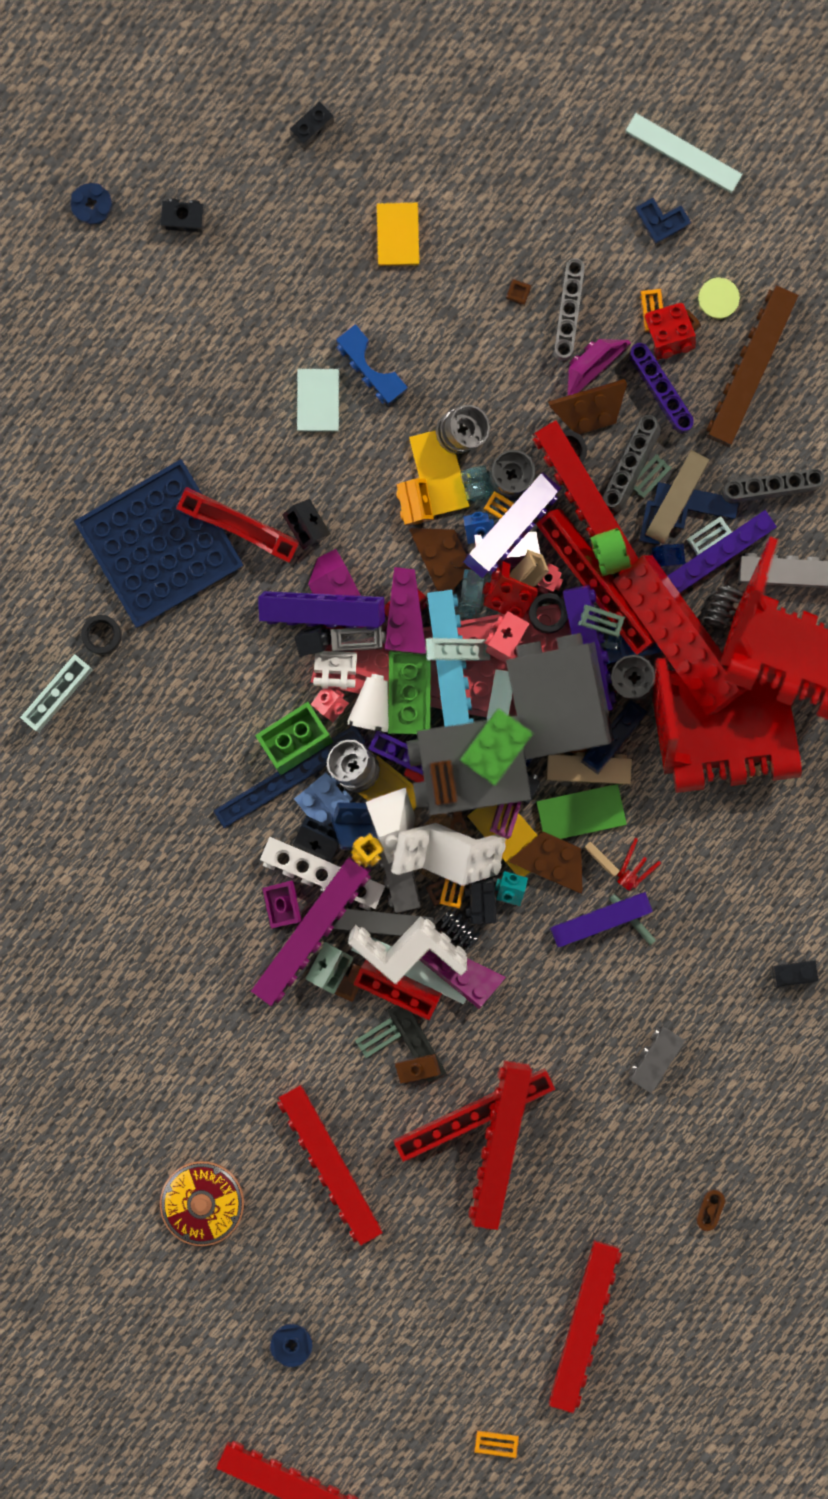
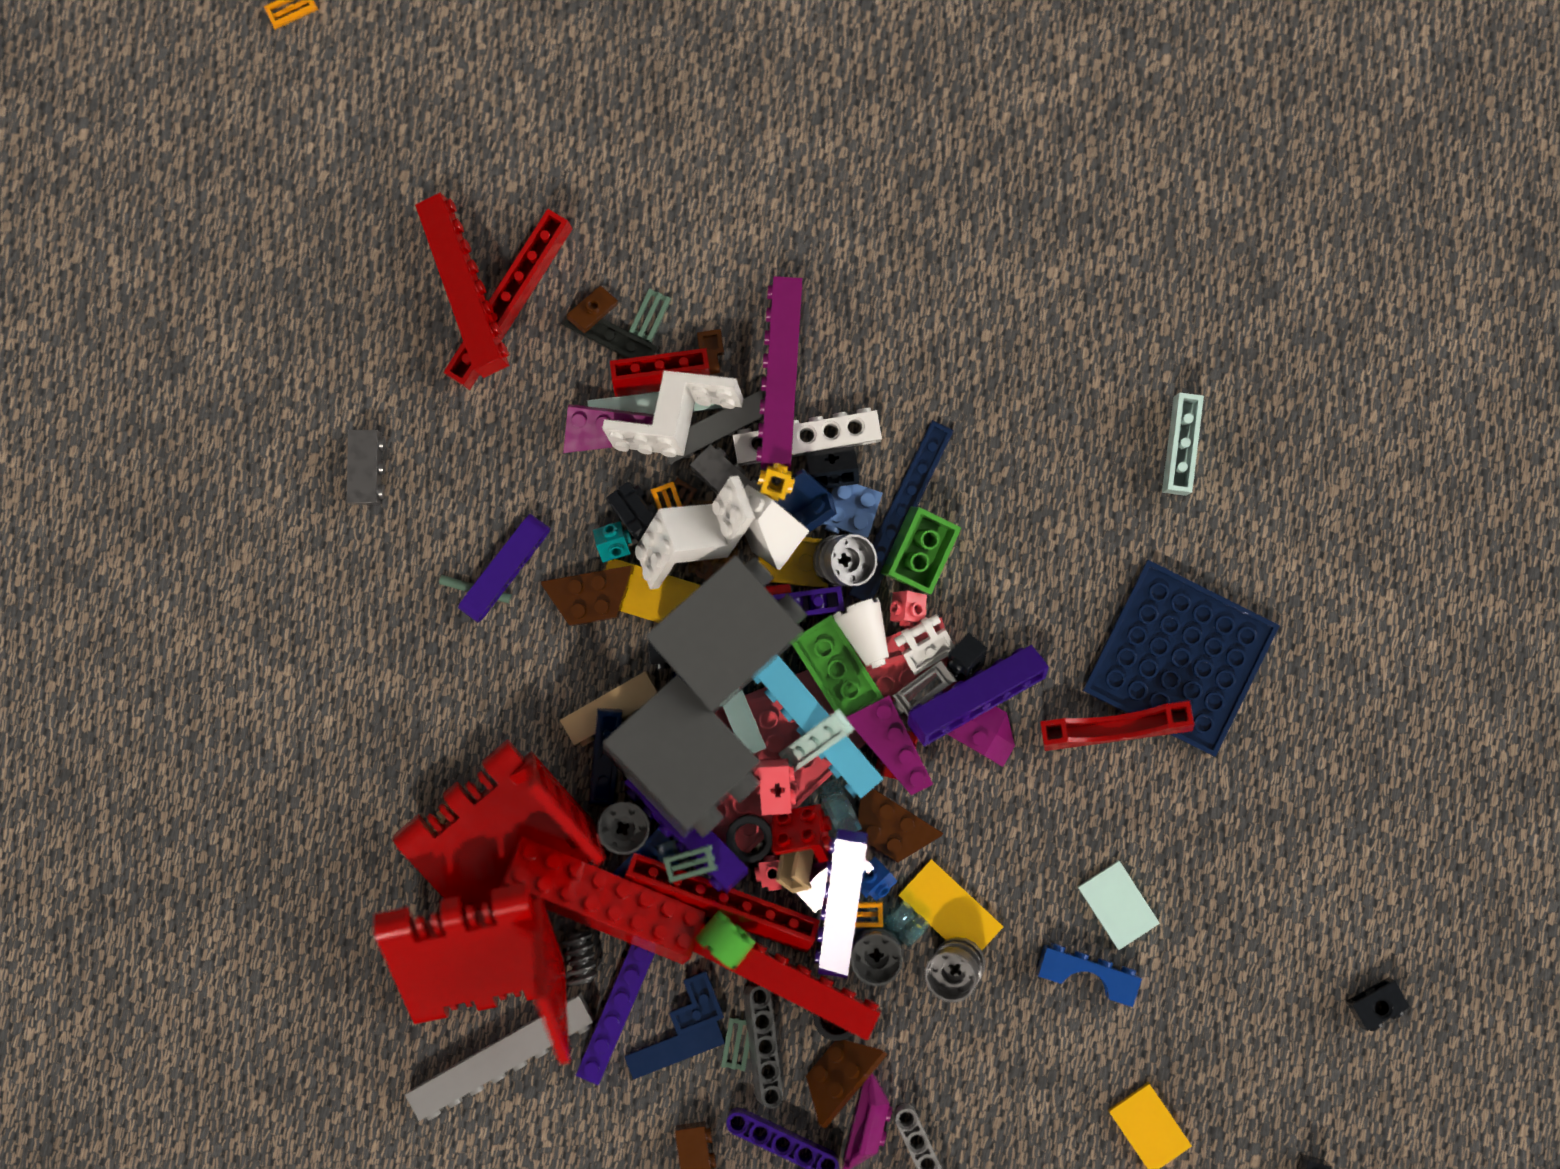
camera: 155 degrees right, 0 degrees up
(80, 198) = (1463, 961): dark blue plate -> none
(101, 619) = (1190, 517): black tyre -> none
(201, 1203) = (717, 51): dish -> none
(282, 904) = (825, 383): magenta slope -> none
(306, 524) = (1048, 771): black brick -> none
(329, 968) = (740, 350): sand green brick -> none
(330, 1165) = (617, 164): red brick -> none
(414, 501) = (955, 864): light orange brick -> none
(442, 776) = (728, 579): reddish brown tile -> none
(459, 929) = (638, 469): black piece -> none
(496, 746) = (712, 664): bright green brick -> none
(516, 806) = (652, 603): magenta tile -> none
(518, 292) = (989, 1147): reddish brown tile -> none
(582, 812) = (590, 662): bright green tile -> none
(584, 1325) = (274, 168): red brick -> none
(601, 859) = (542, 627): tan tile -> none
(628, 879) = (502, 626): red plant -> none
(669, 555) = (666, 976): clear blue bracket -> none
(677, 497) = (695, 1040): dark tan beam -> none
(694, 546) = (647, 1001): light aqua tile -> none
(712, 1210) = (221, 358): reddish brown plate -> none
(780, 480) = (601, 1125): dark grey beam -> none
(794, 973) = (280, 638): black brick -> none

